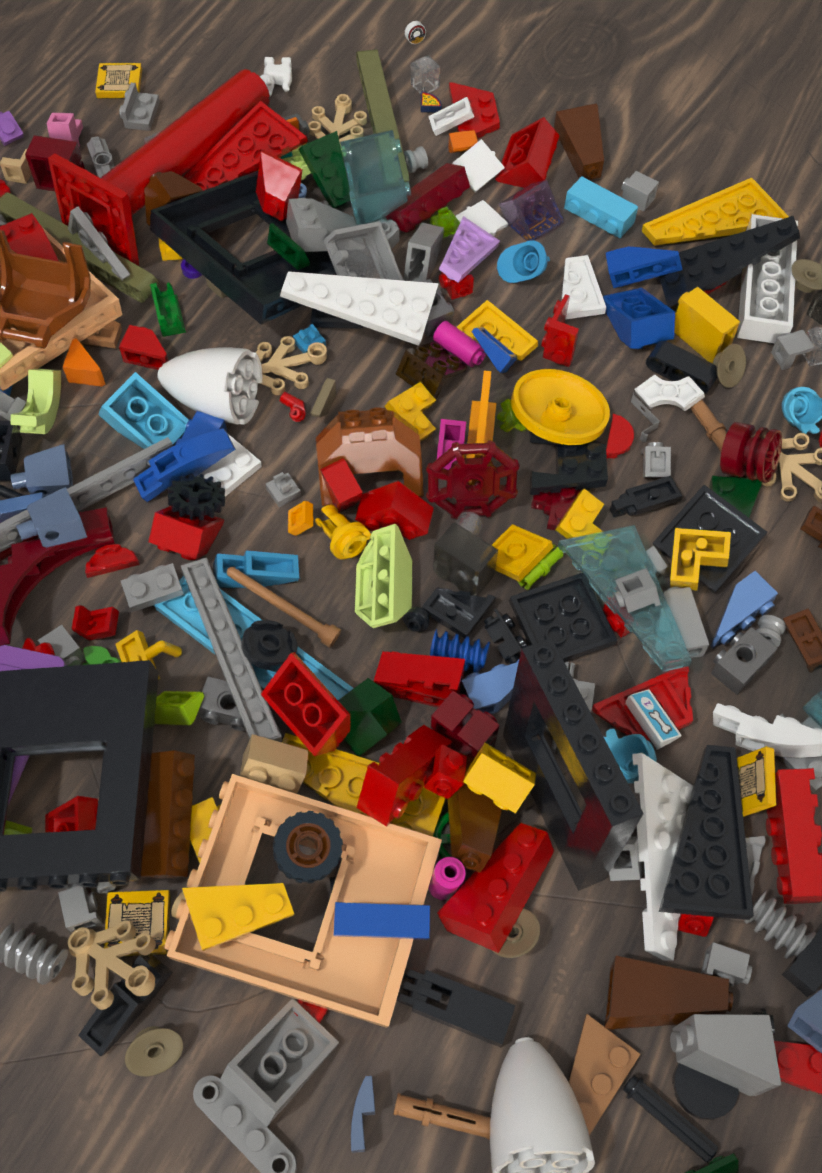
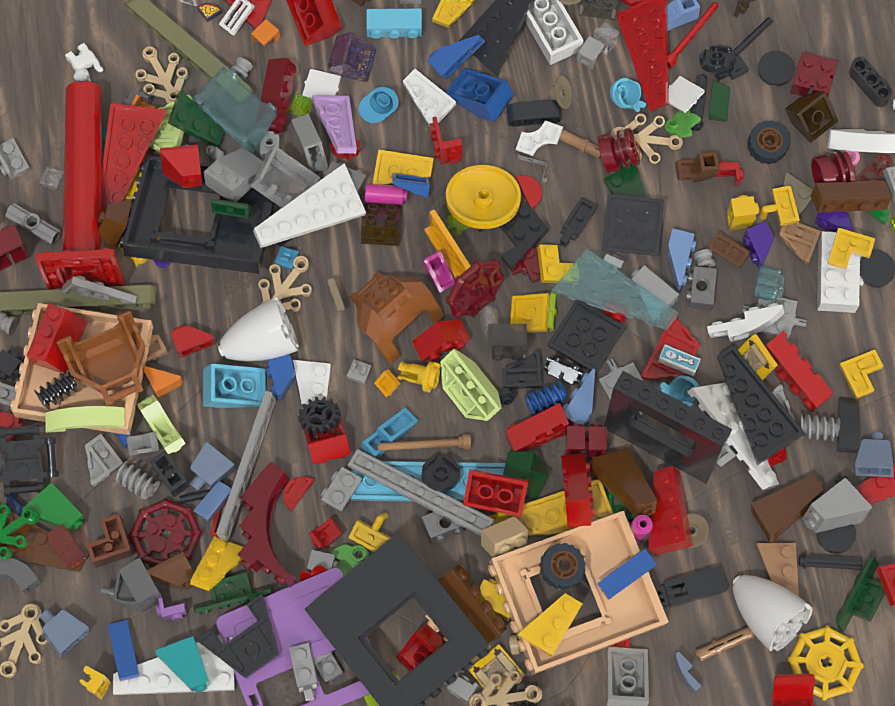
camera: 35 degrees left, 10 degrees up
(53, 520) = (253, 493): sand blue torso -> none
(168, 310) = (178, 303): green hinge -> none
(177, 707) = (423, 543): lime slope -> none
(183, 459) = (289, 400): blue slope -> none
(296, 406) = (319, 310): red arm -> none
(341, 485) = (399, 346): red slope -> none
(410, 407) = (390, 261): yellow plate -> none
(447, 772) = (600, 473): red bracket -> none
(480, 165) = (289, 44): white piece -> none
(499, 778) = (629, 456): yellow brick -> none
(636, 591) = (621, 293): light grey brick -> none
(656, 460) = (564, 192): light grey bracket -> none
(696, 549) = (631, 241): yellow brick -> none
(704, 324) = (528, 74): yellow brick -> none
(727, 964) = (806, 466): light grey brick -> none

